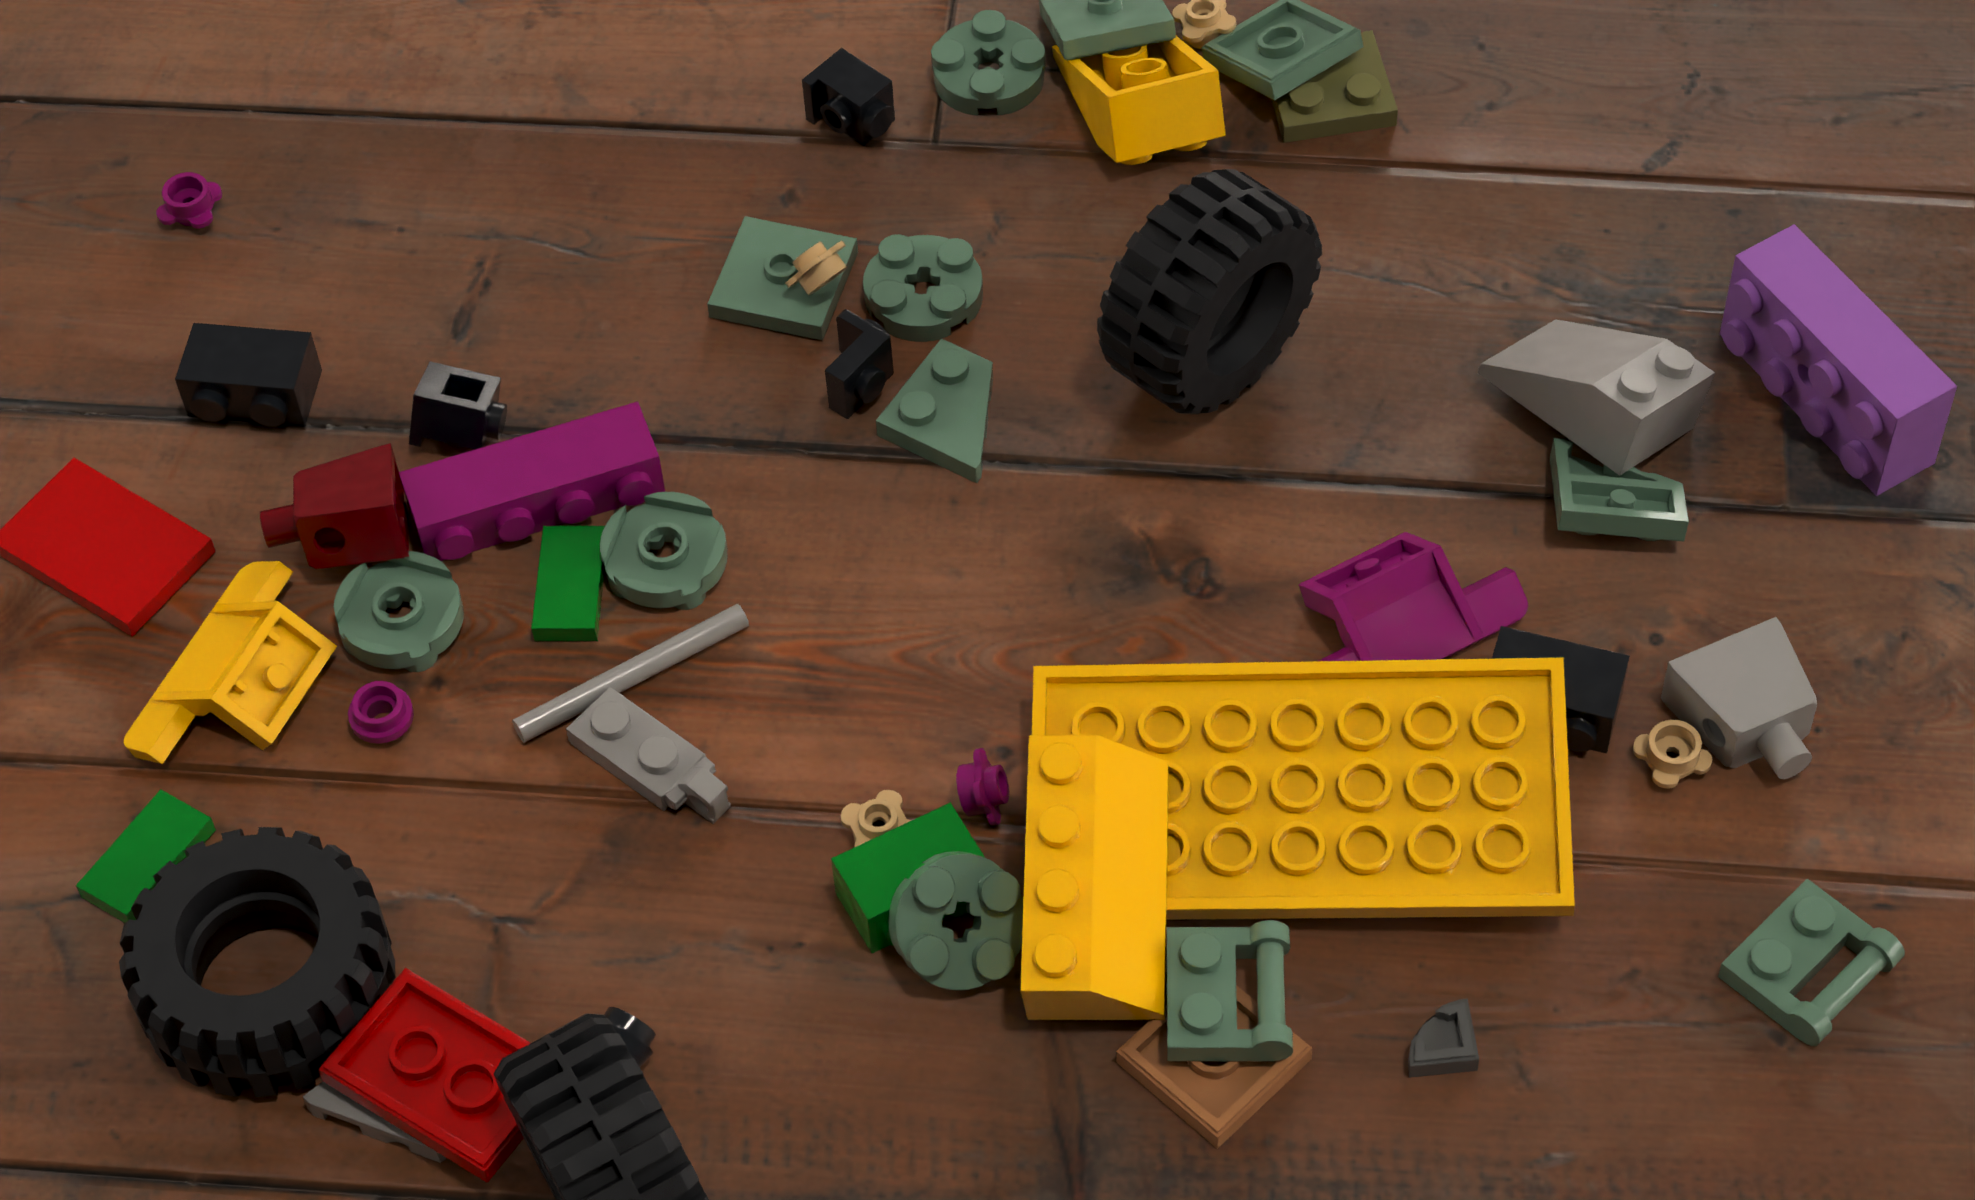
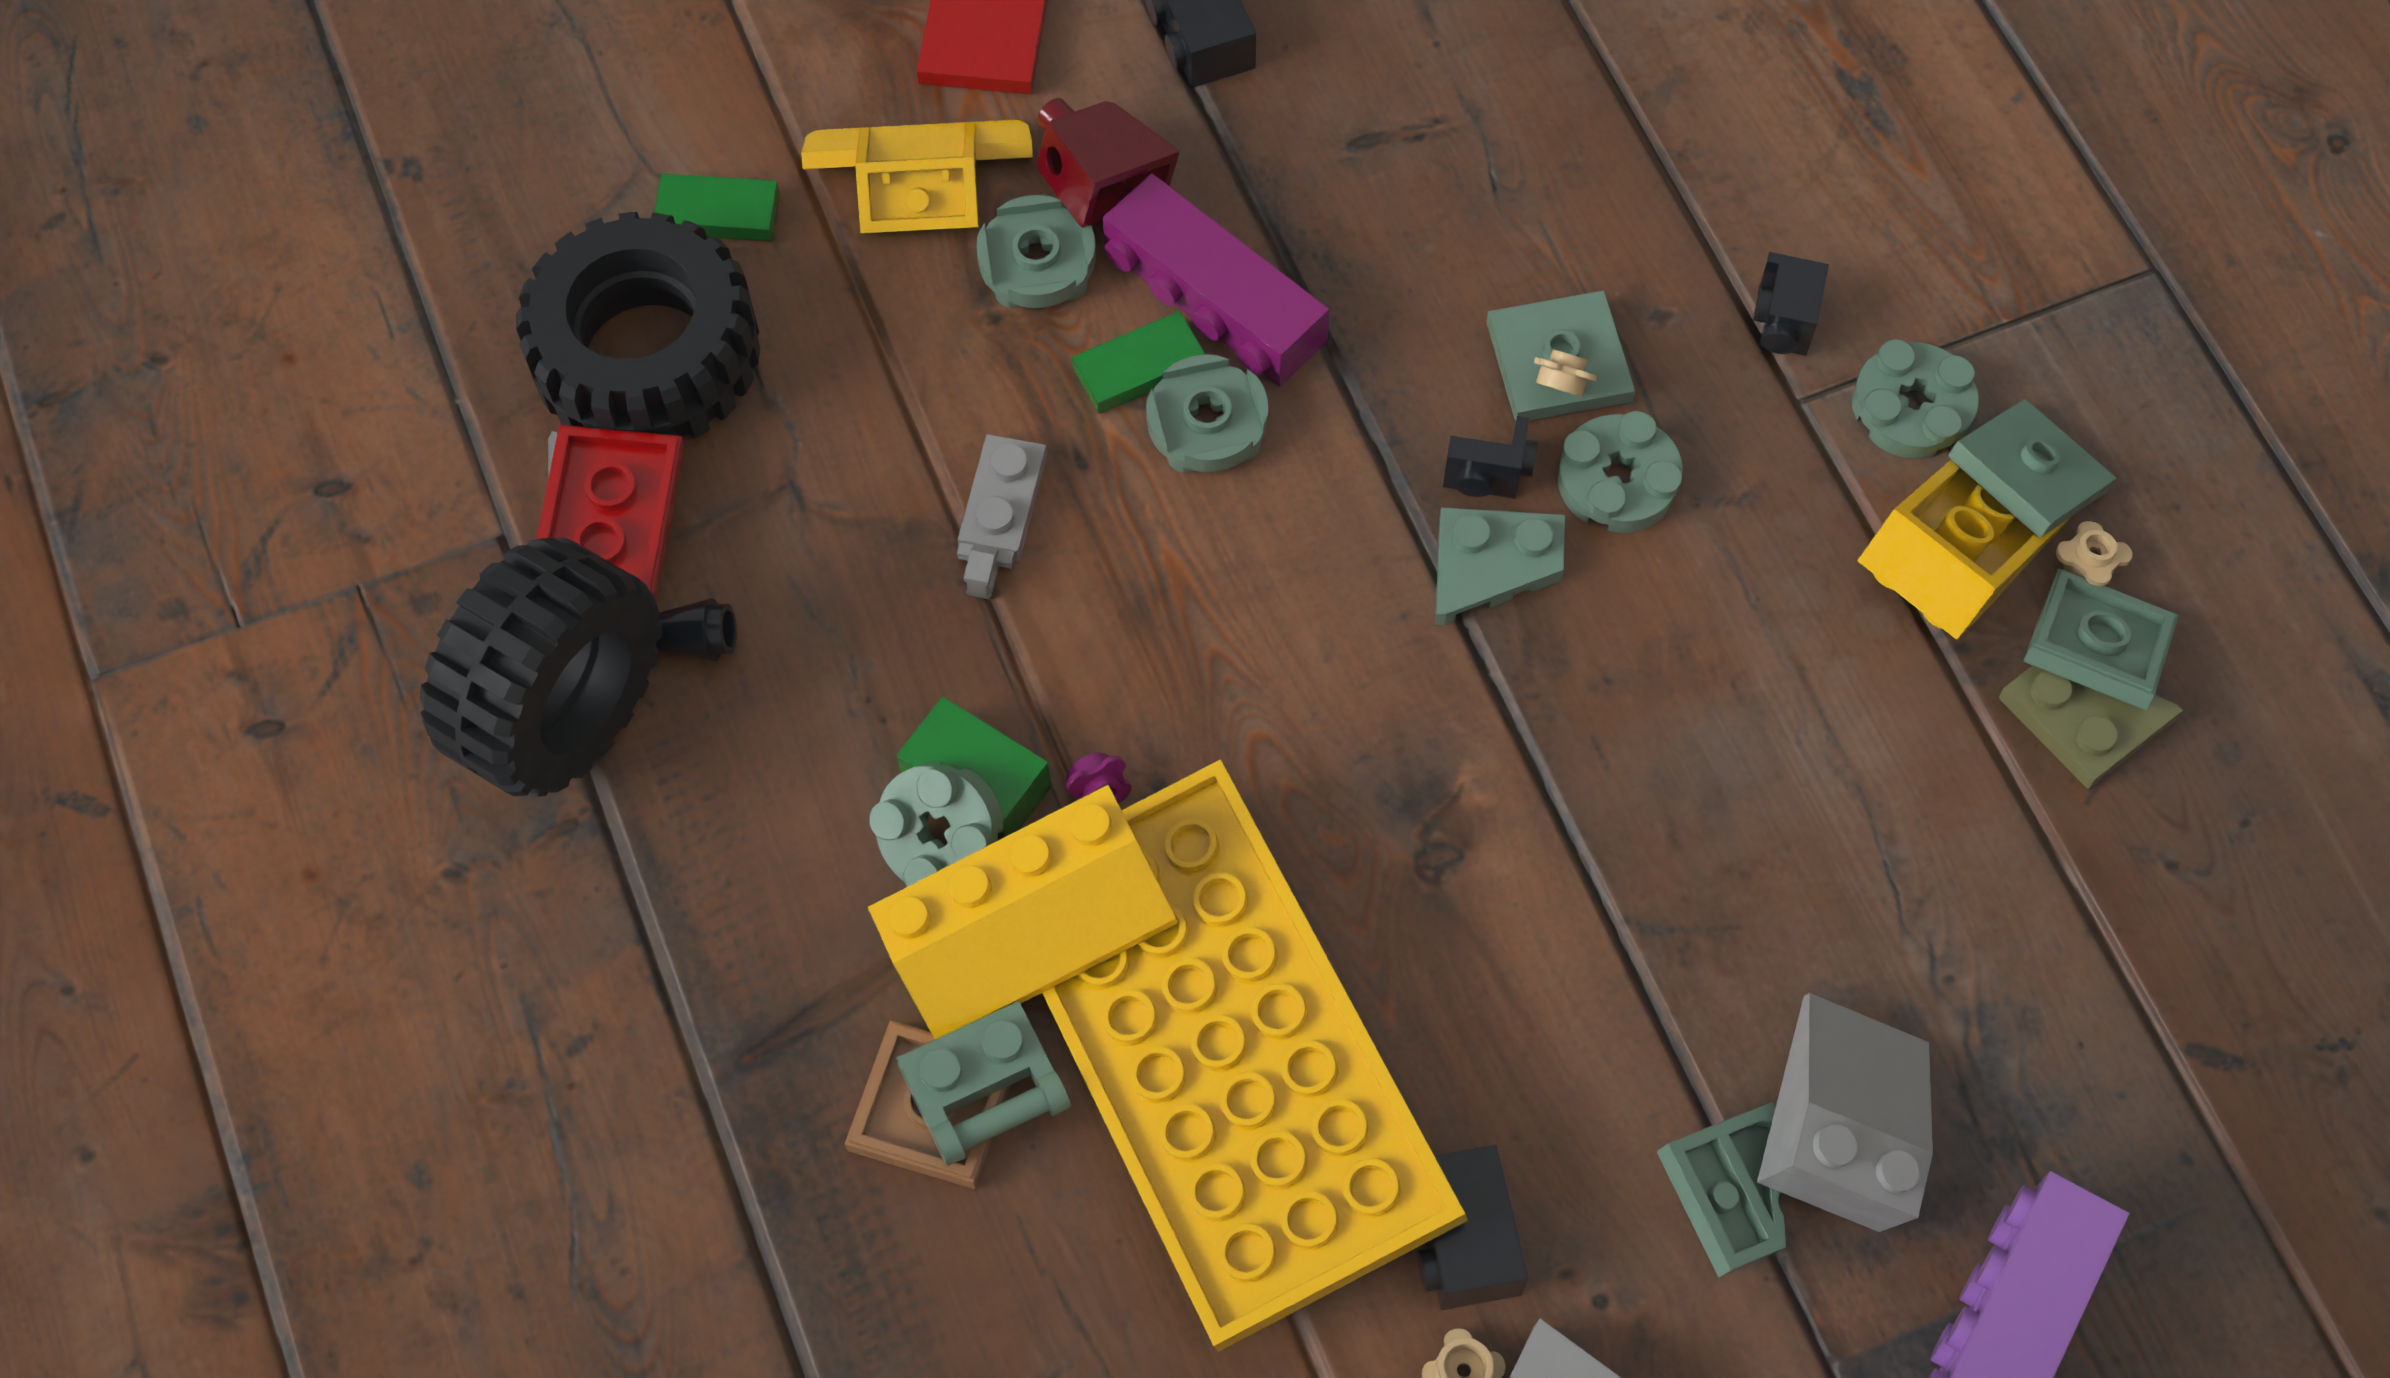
camera: 60 degrees right, 10 degrees up
(375, 699) = (932, 279): magenta plate -> none
(456, 407) = (1256, 181): black brick -> none
(631, 672) = (1077, 455): light grey bar -> none
(861, 817) = (1021, 703): tan plate -> none
(1209, 291) = (1704, 703): black tyre -> none
(1409, 604) = (1483, 1052): magenta plate -> none
(1445, 1043) = (1042, 1296): dark grey tile -> none

